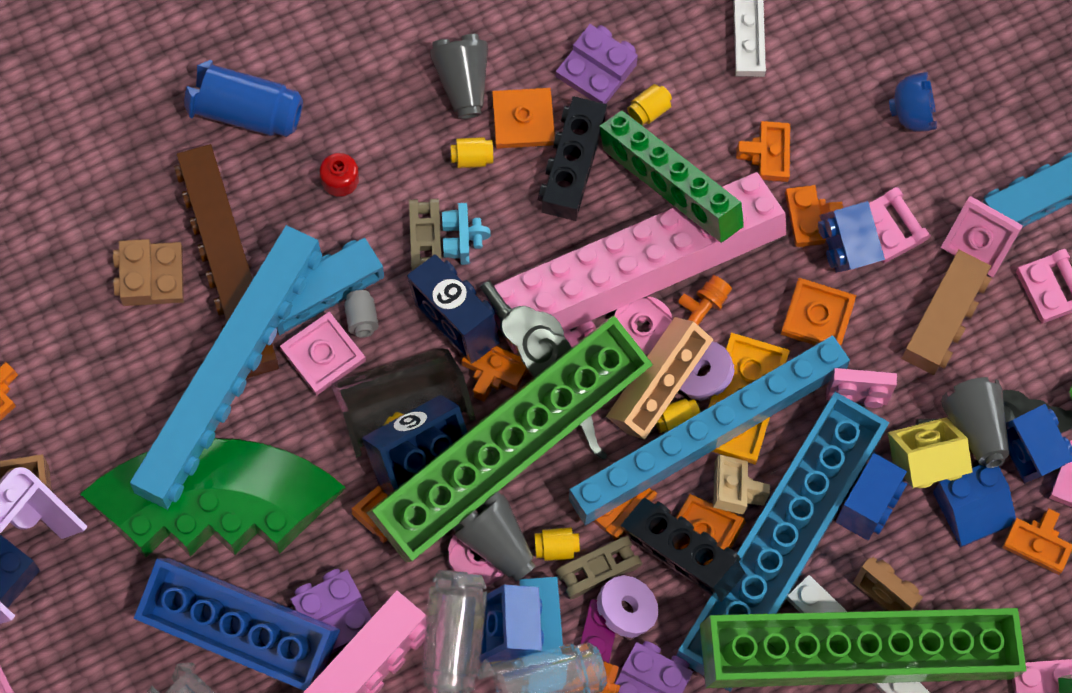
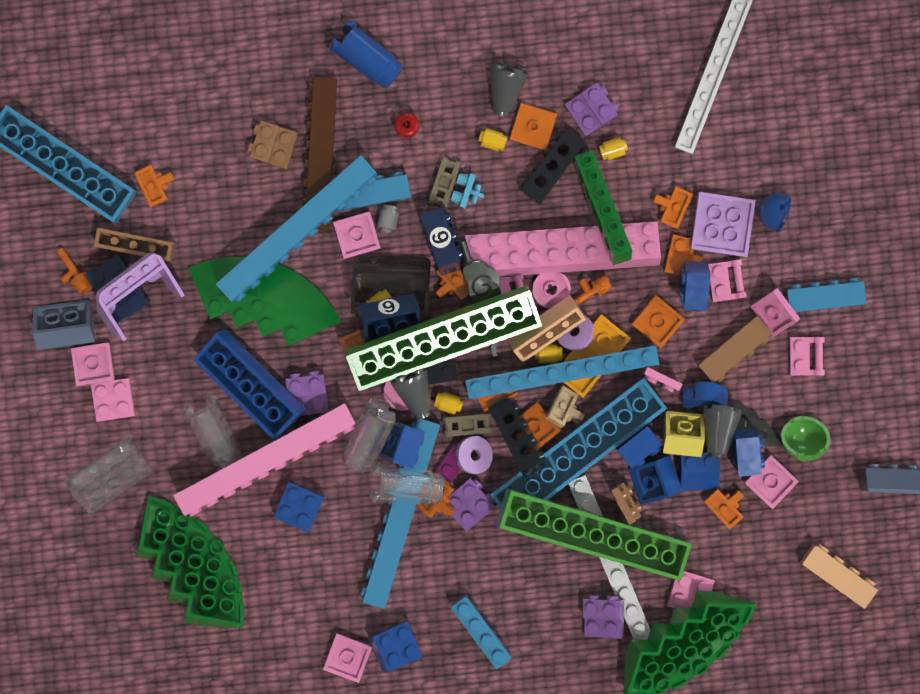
camera: 20 degrees right, 20 degrees up
(529, 502) = (442, 372): none -> black hinge
(850, 149) = (722, 224): none -> lavender plate
(917, 541) = (655, 480): none -> blue slope
(931, 384) = (704, 394): none -> blue brick

